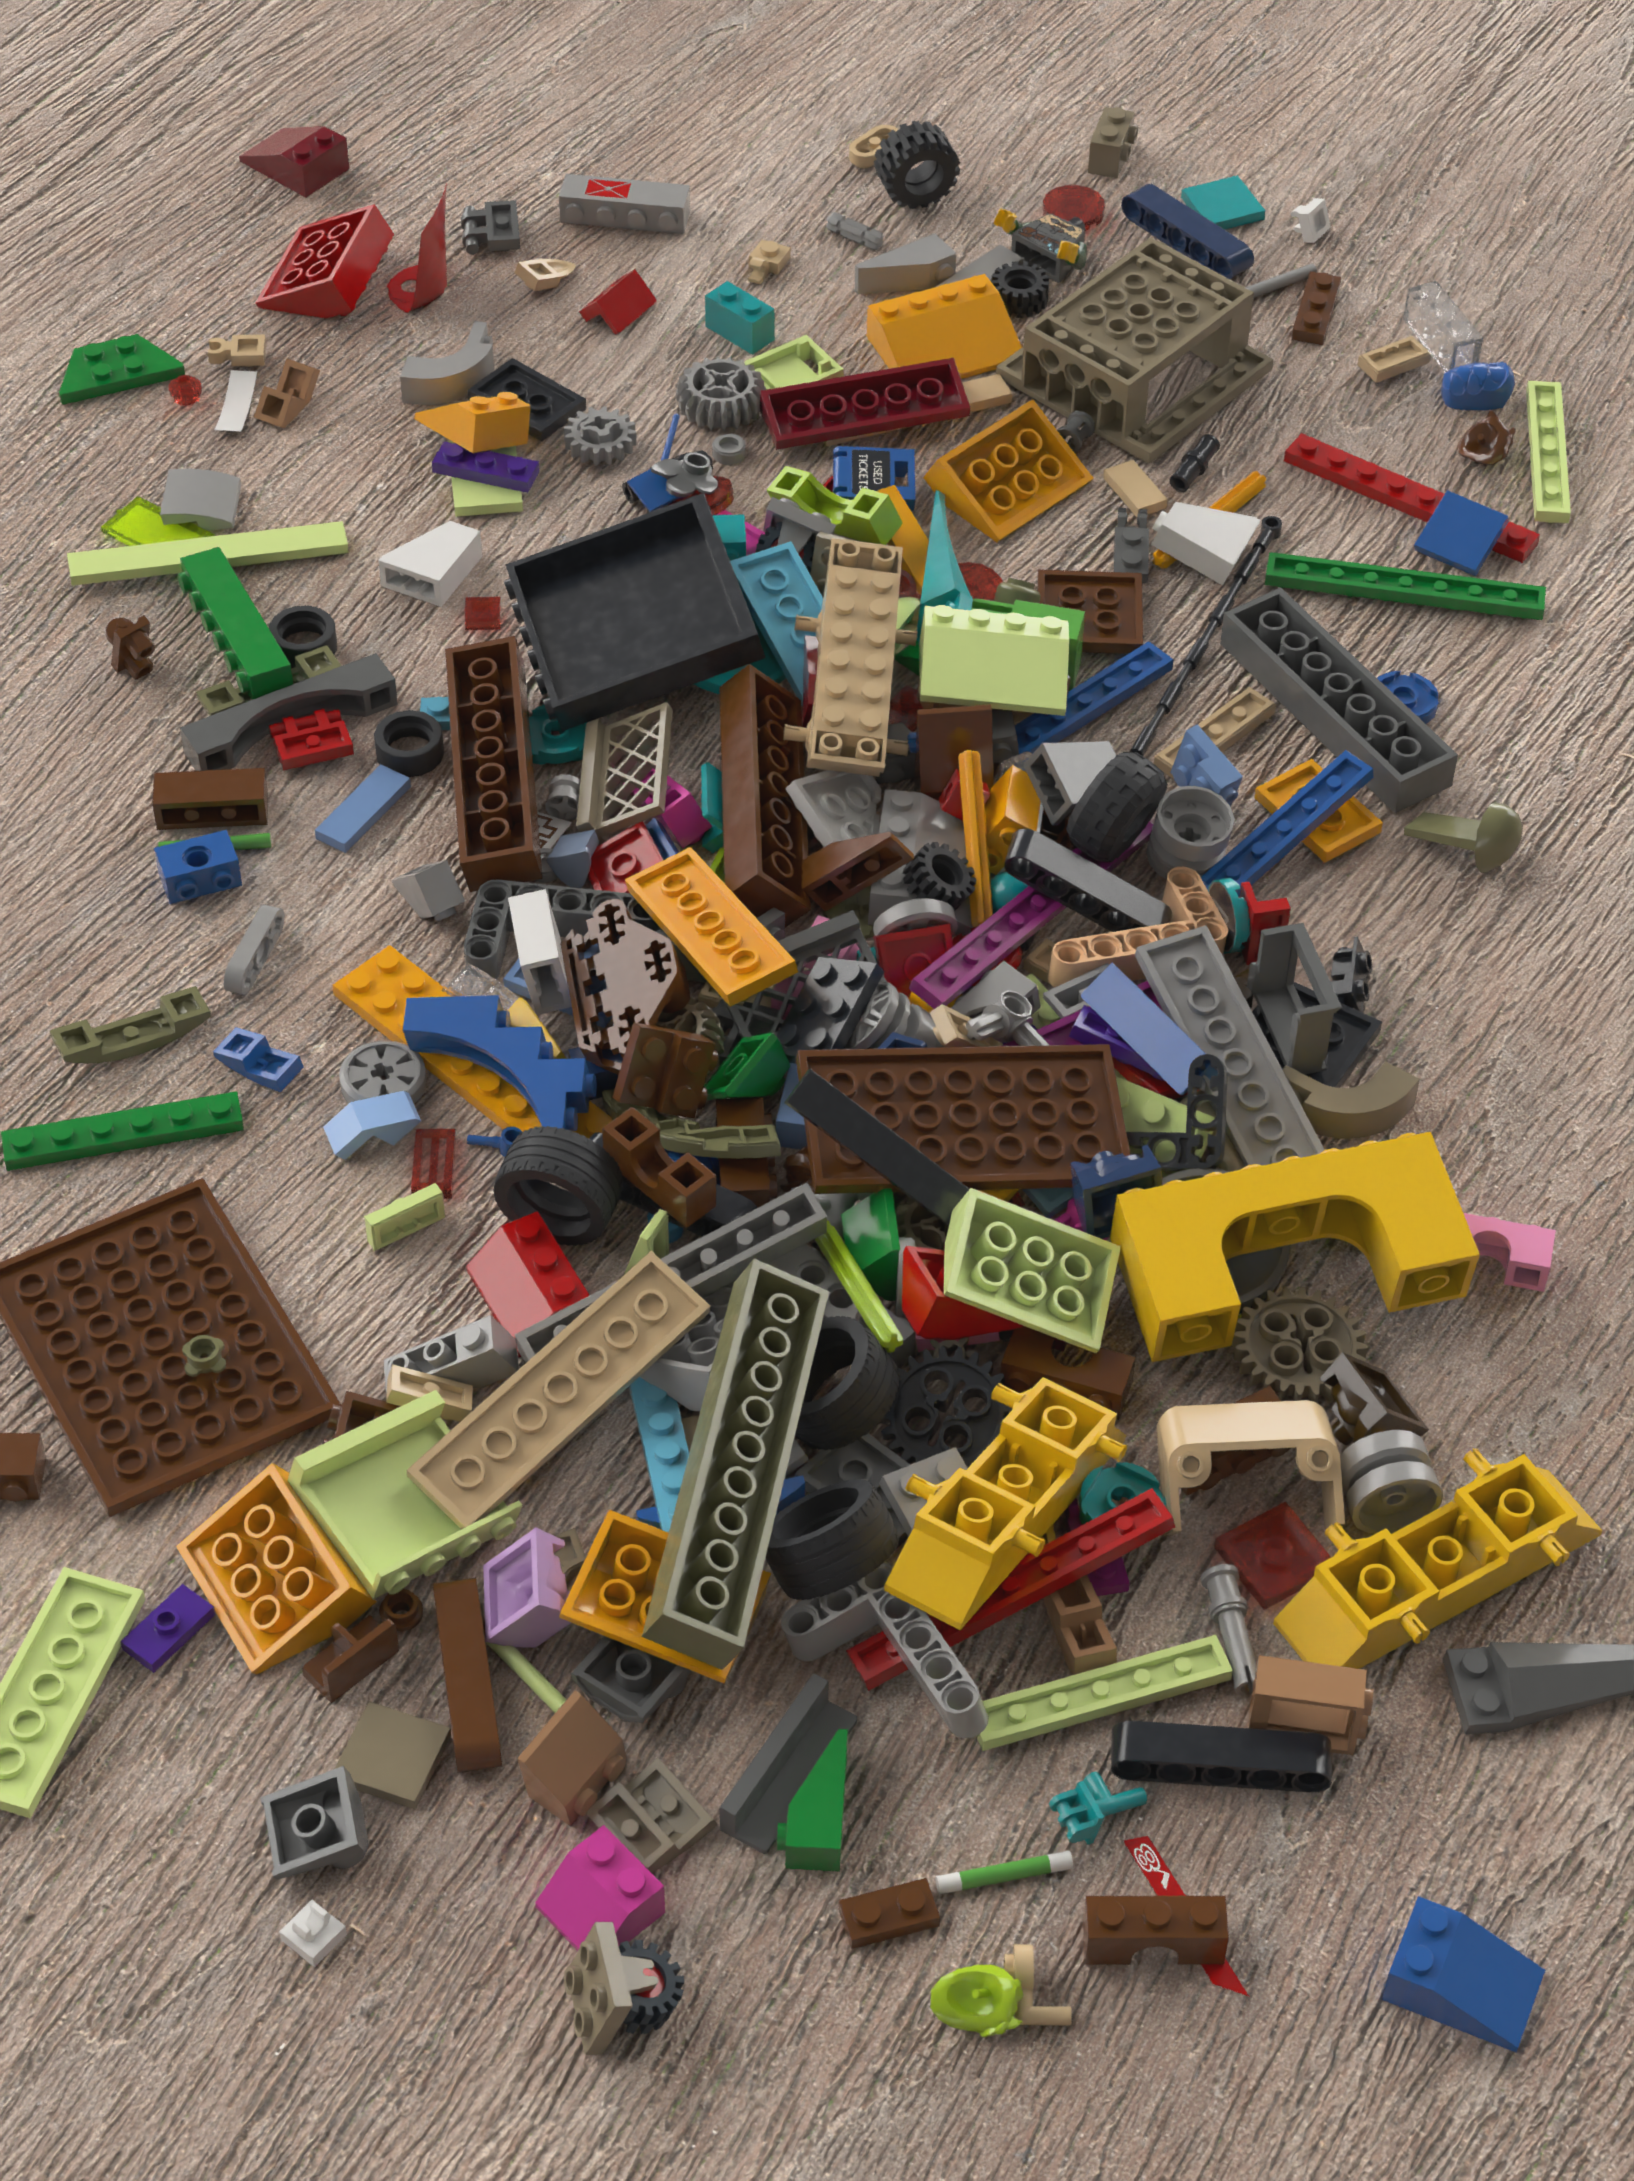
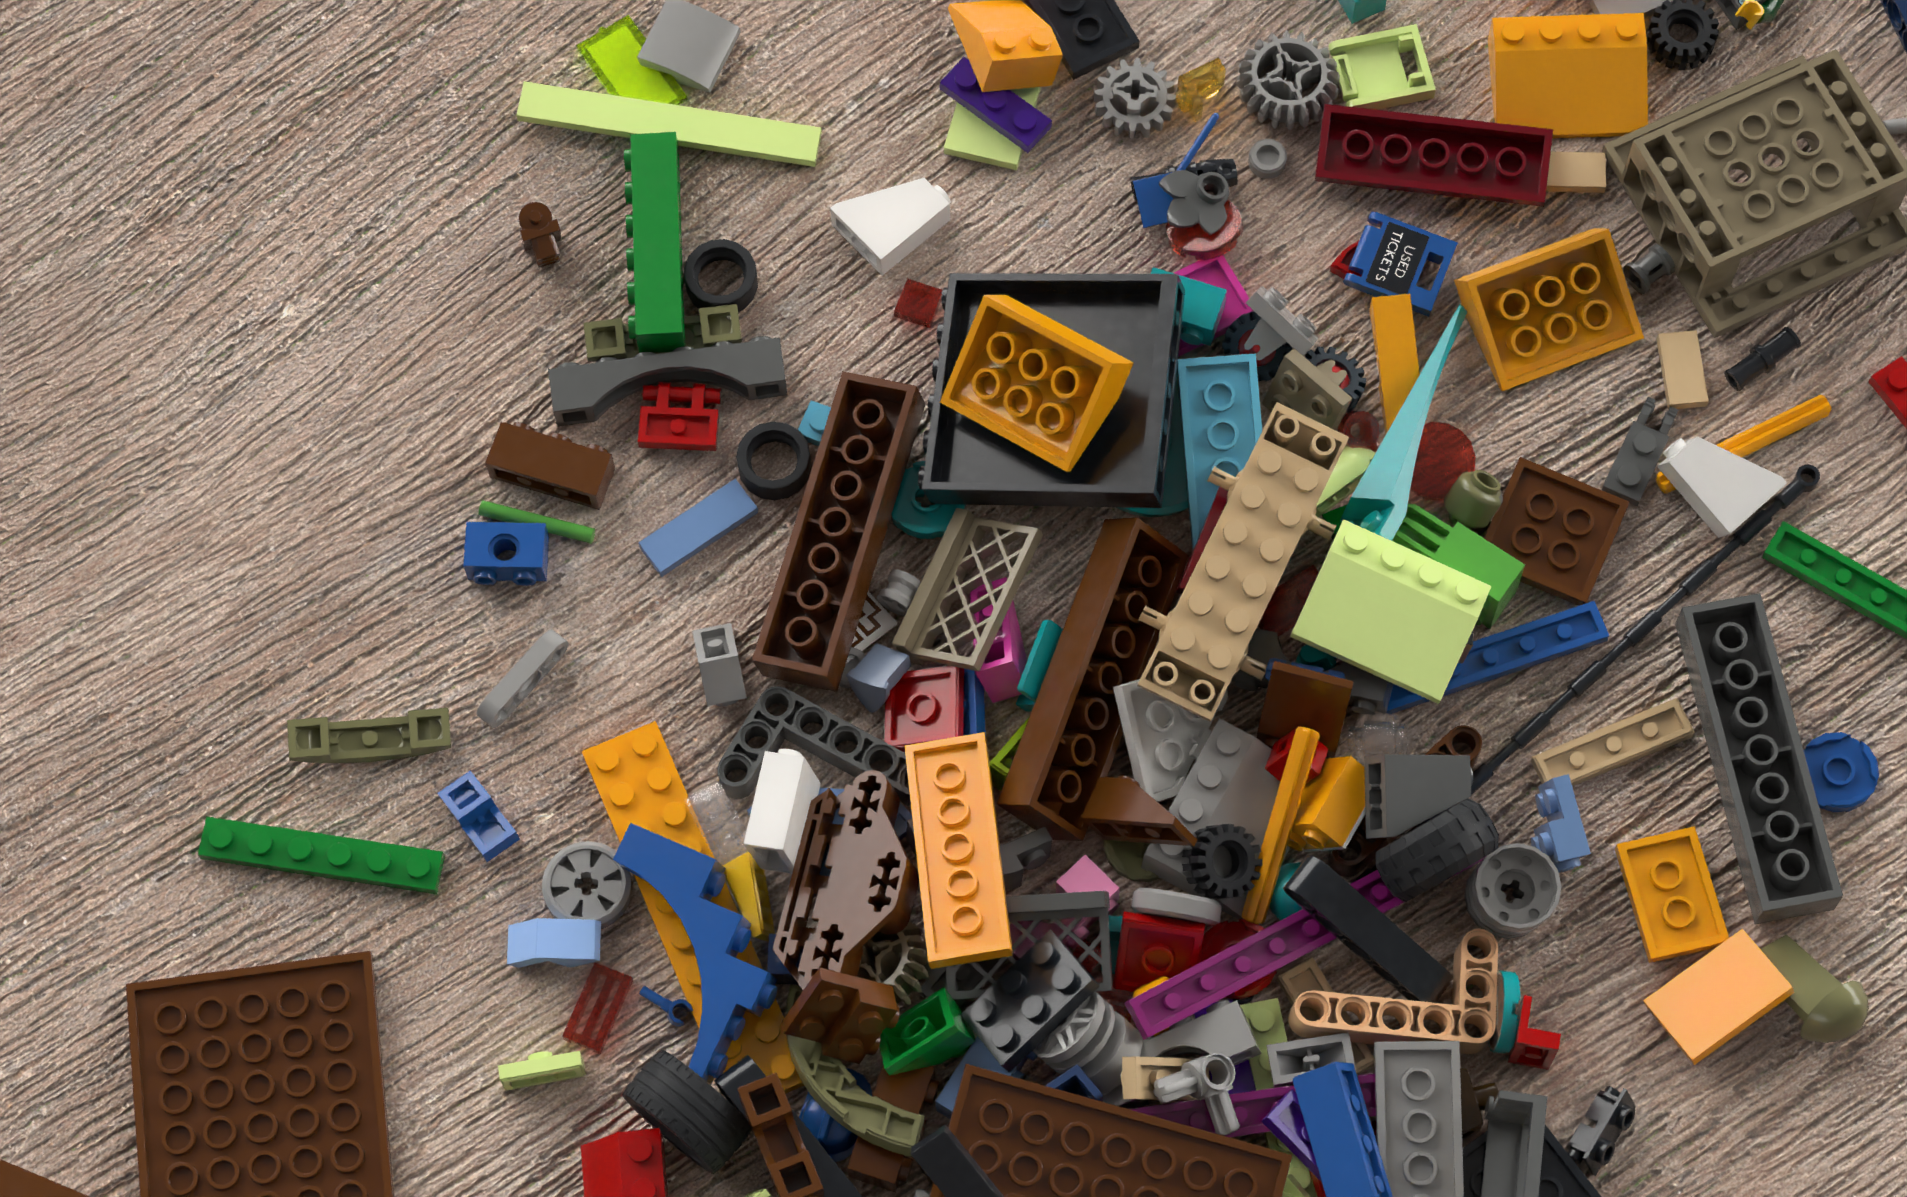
camera: 25 degrees right, 20 degrees up
(201, 1347) = (283, 1164): olive plate -> none
(617, 594) = (1034, 380): none -> light orange slope
(649, 414) = (1200, 82): none -> clear yellow bracket
(866, 518) = (1332, 303): lime arch -> none
(1292, 821) = (1618, 917): blue plate -> none
(1395, 858) = (1718, 996): none -> light orange tile

